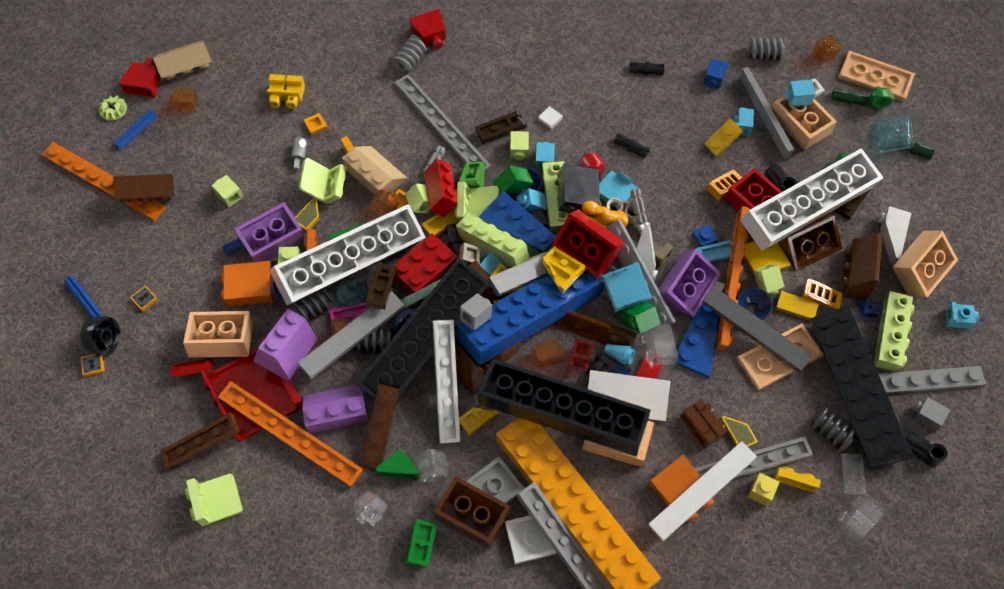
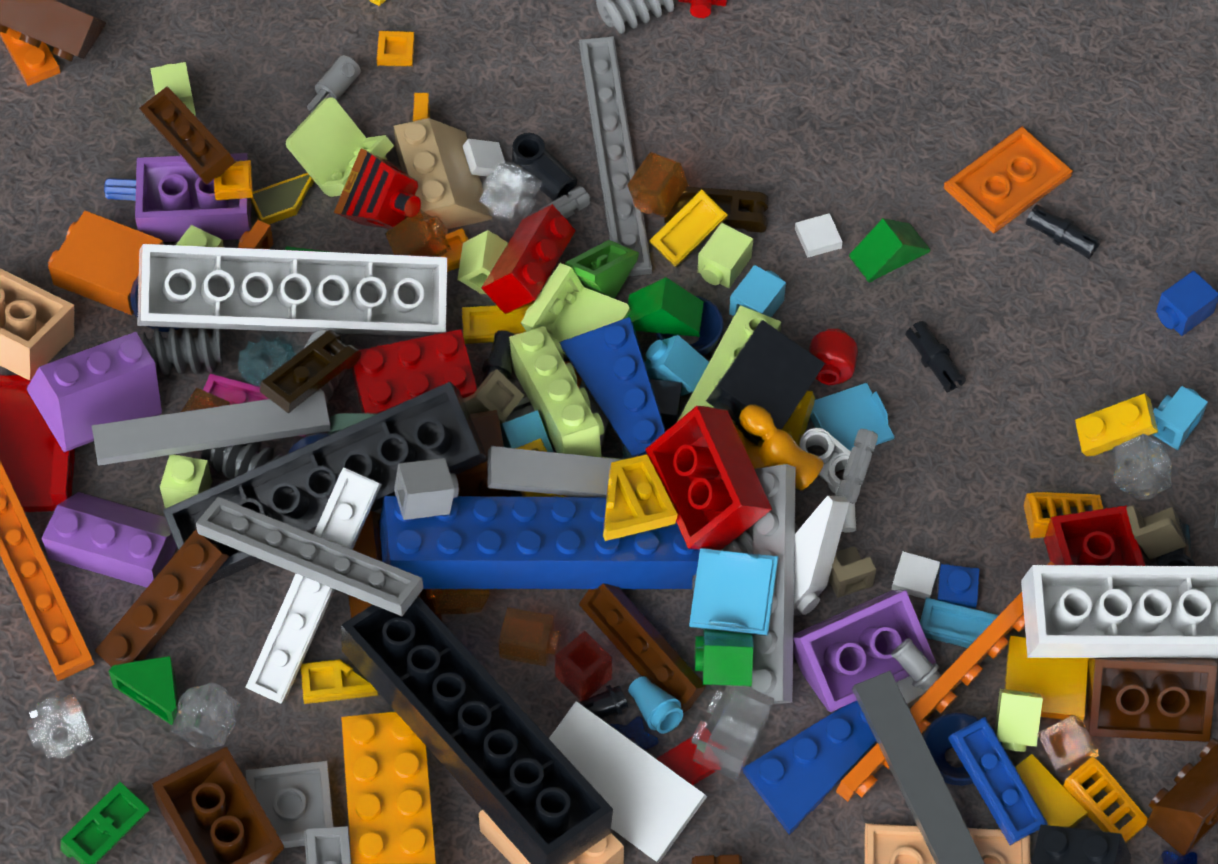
camera: 30 degrees right, 5 degrees down
(252, 207) = (187, 135): none -> reddish brown plate
(287, 217) = (235, 182): none -> light orange tile
(352, 365) = (184, 479): none -> yellowish green brick
(355, 191) = (378, 193): none -> torso
(388, 153) = (482, 156): none -> white tile
(413, 157) = (510, 192): none -> clear brick
(416, 145) = (555, 177): none -> black piece
(442, 369) = (310, 556): none -> light grey plate
(473, 128) = (657, 185): none -> clear orange brick
(496, 141) = (688, 228): none -> yellow tile
(582, 110) = (887, 248): none -> green slope
(610, 57) = (1008, 179): none -> orange tile
(685, 241) = (916, 575): none -> white tile
(721, 280) = (916, 664): none -> light grey pin
(745, 149) = (1142, 467): none -> clear brick
(772, 171) = (1158, 532): none -> dark tan panel
(780, 309) = (997, 781): none -> blue tile
(796, 278) = (1068, 743): none -> clear orange brick

